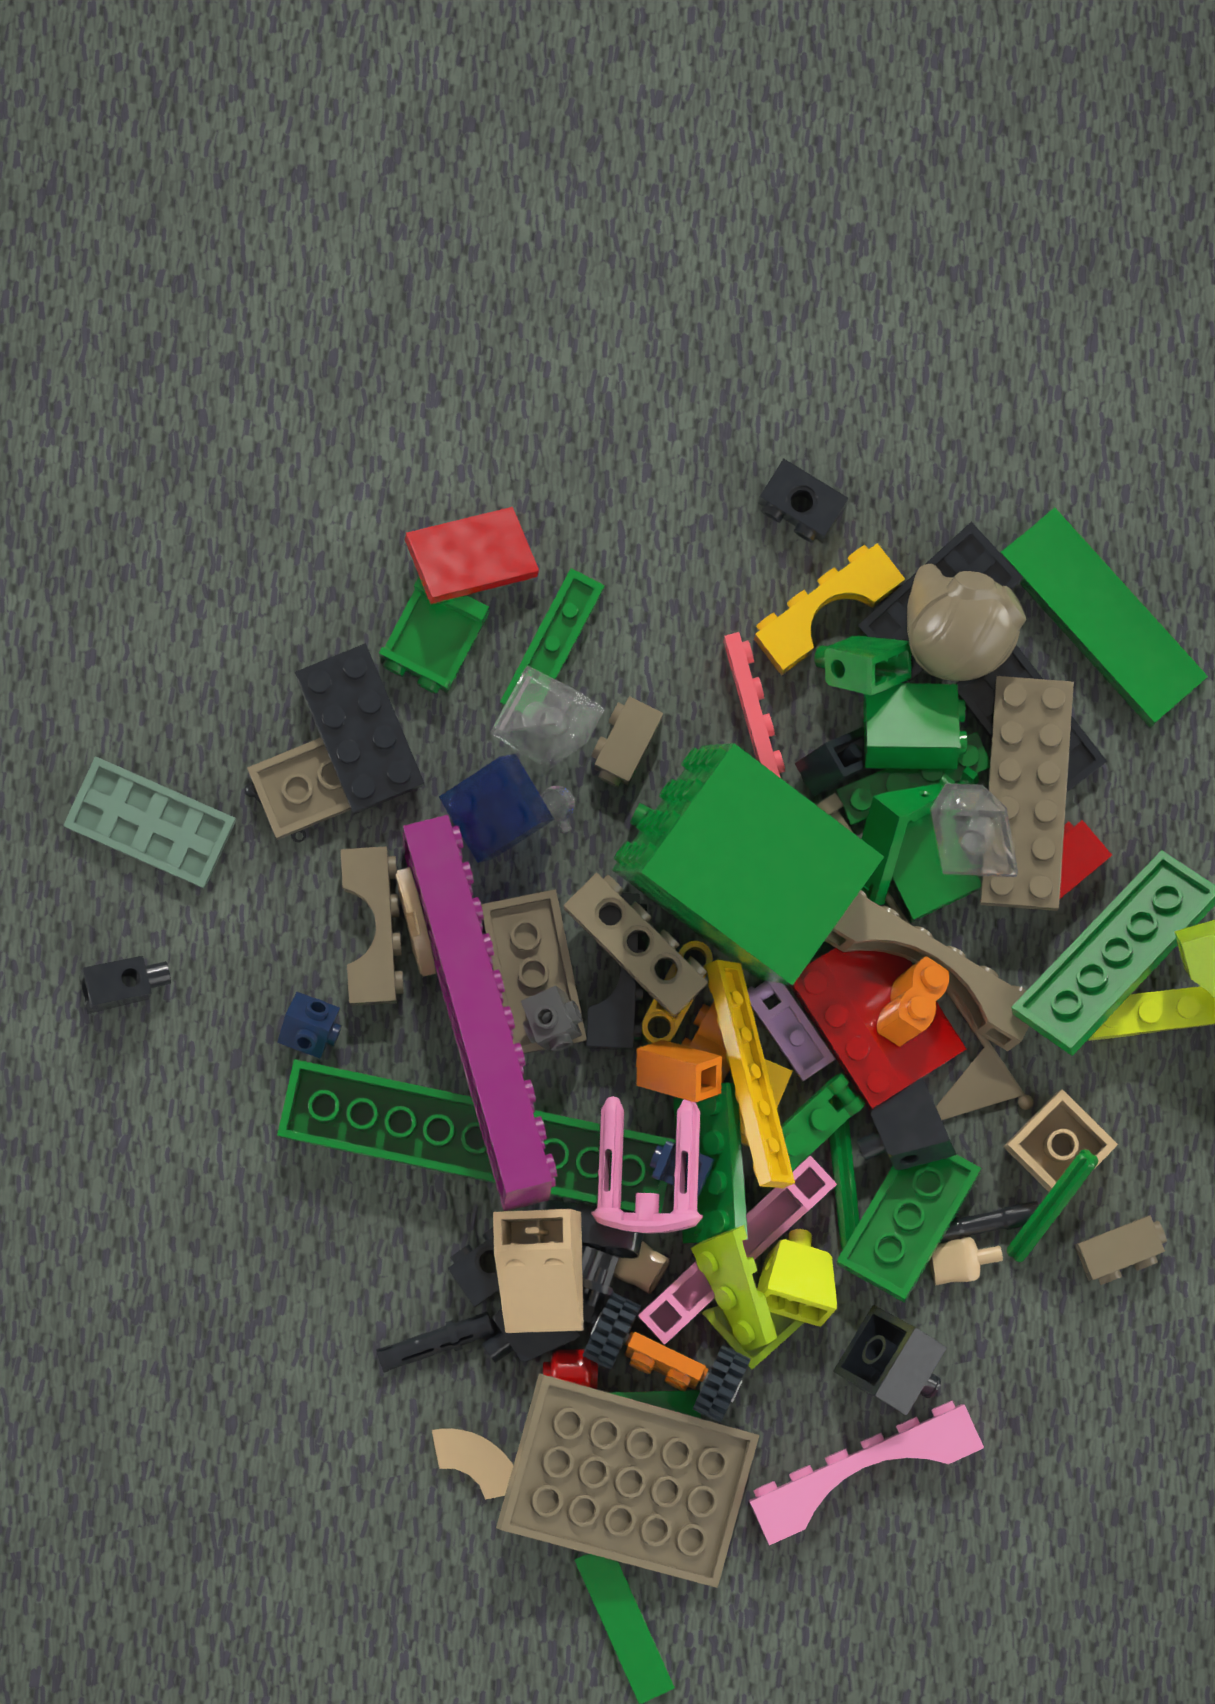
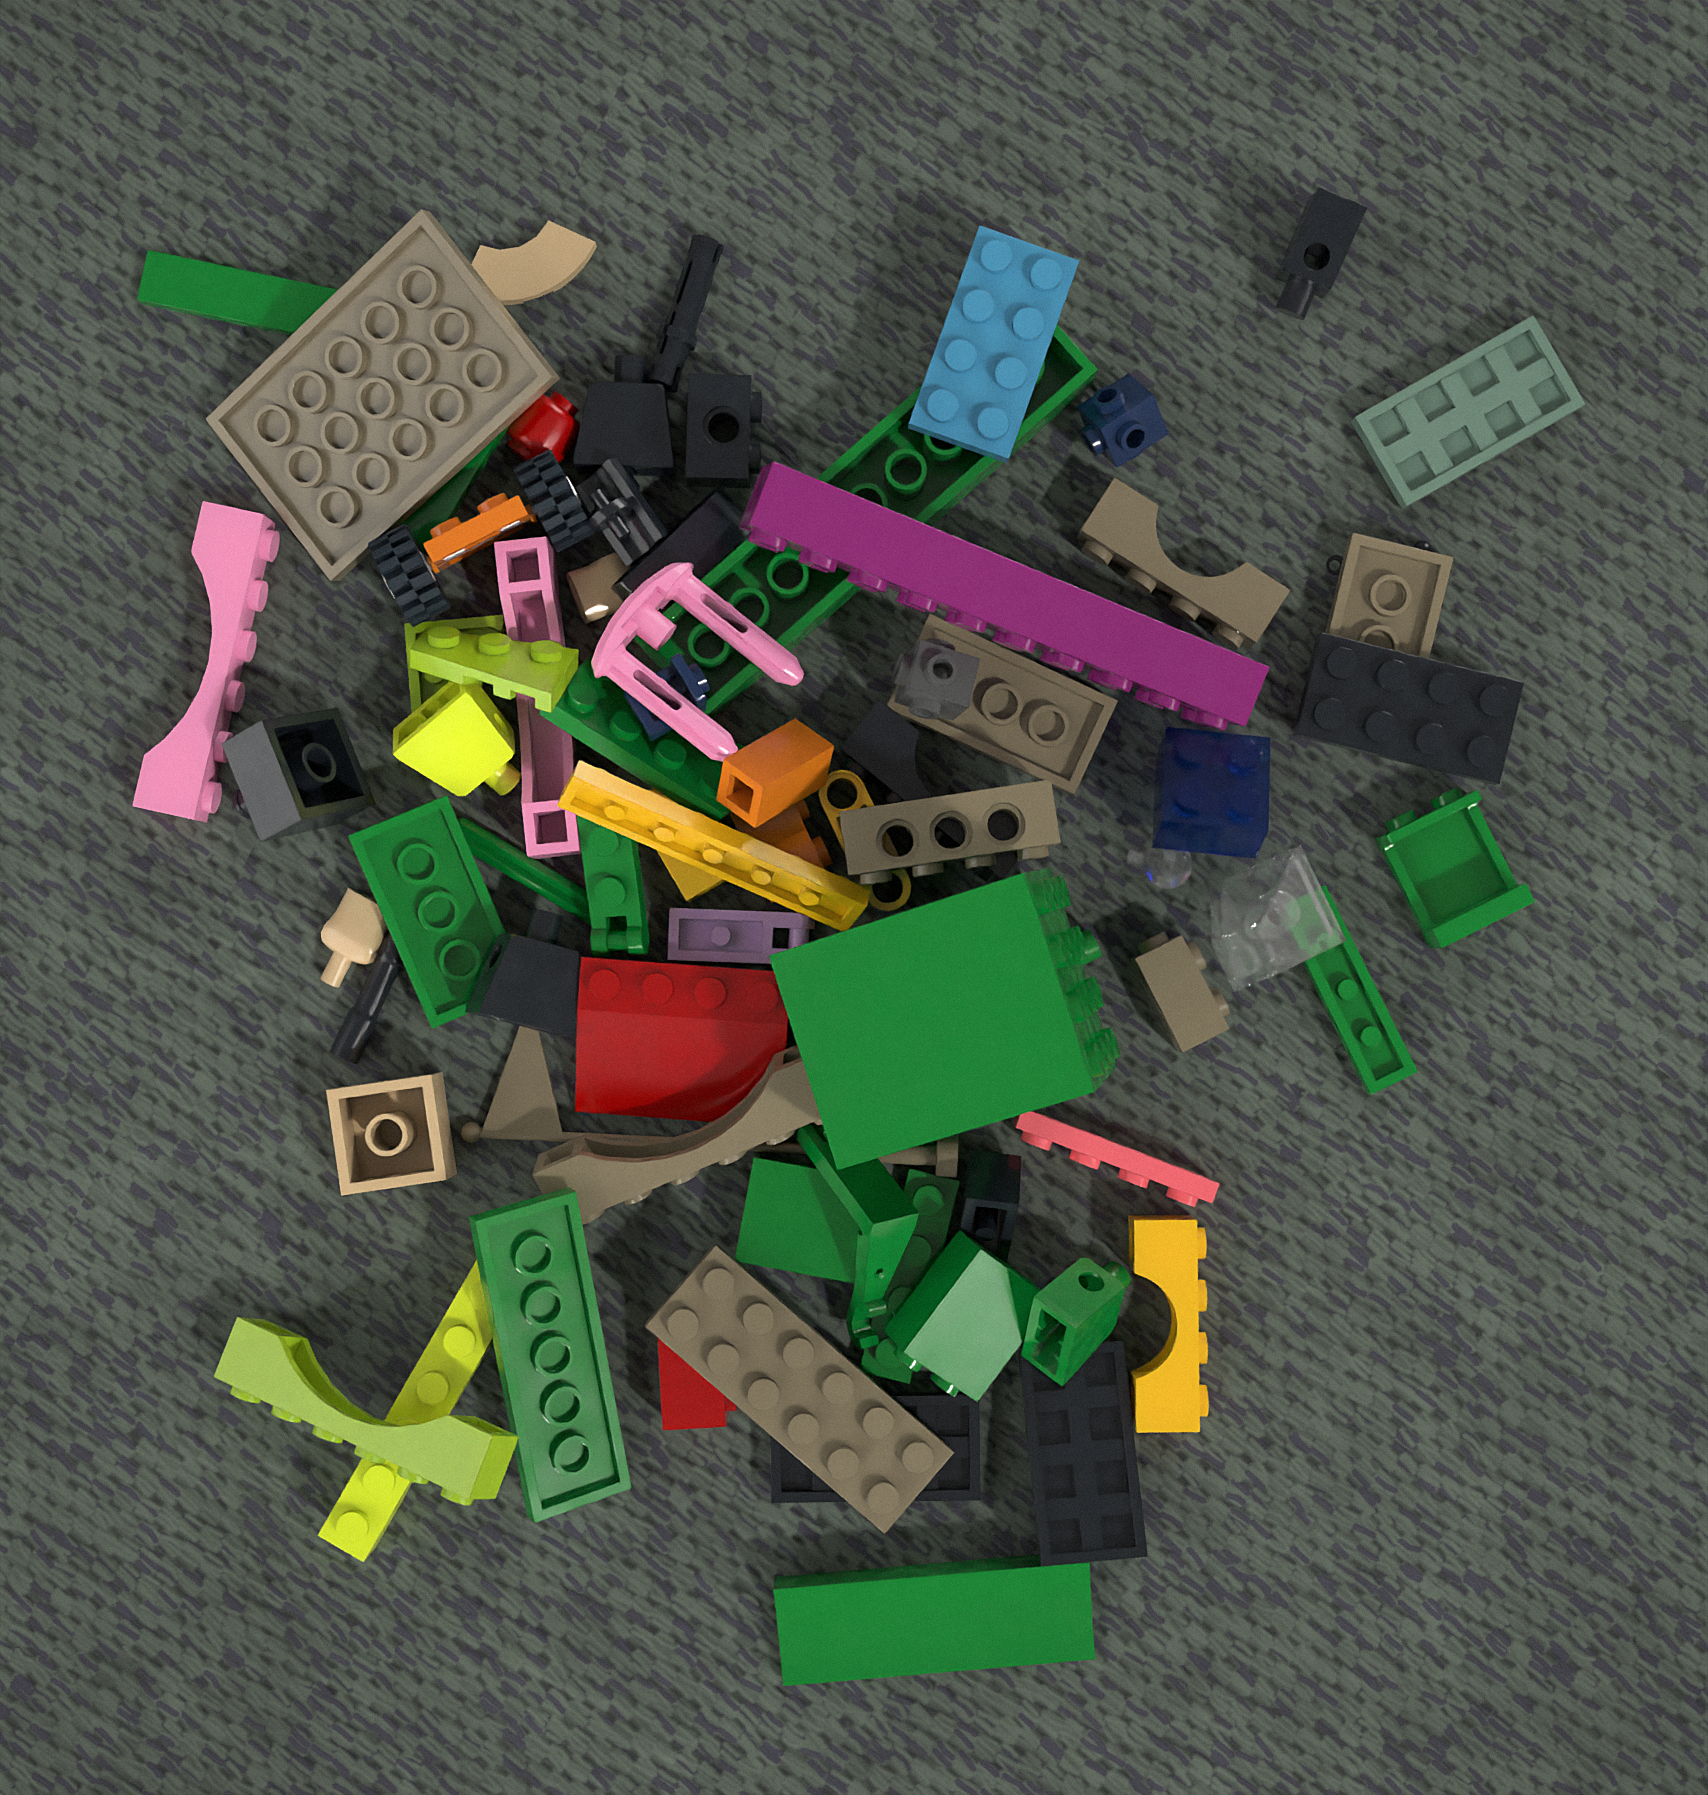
camera: 130 degrees right, 5 degrees up
(325, 1131) = (993, 344): none -> dark azure plate
(415, 922) = (1168, 616): tan tile -> none
(471, 555) = (1513, 971): tile -> none
(539, 1269) = (673, 463): tan slope -> none
(791, 482) = (1335, 1387): black brick -> none
(913, 1001) = (663, 1088): orange brick -> none
(961, 623) = (1041, 1459): dark tan piece -> none
(973, 832) = (797, 1295): clear slope -> none
(1052, 1205) = (328, 1075): green axle -> none
(1121, 1247) = (236, 1116): dark tan brick -> none

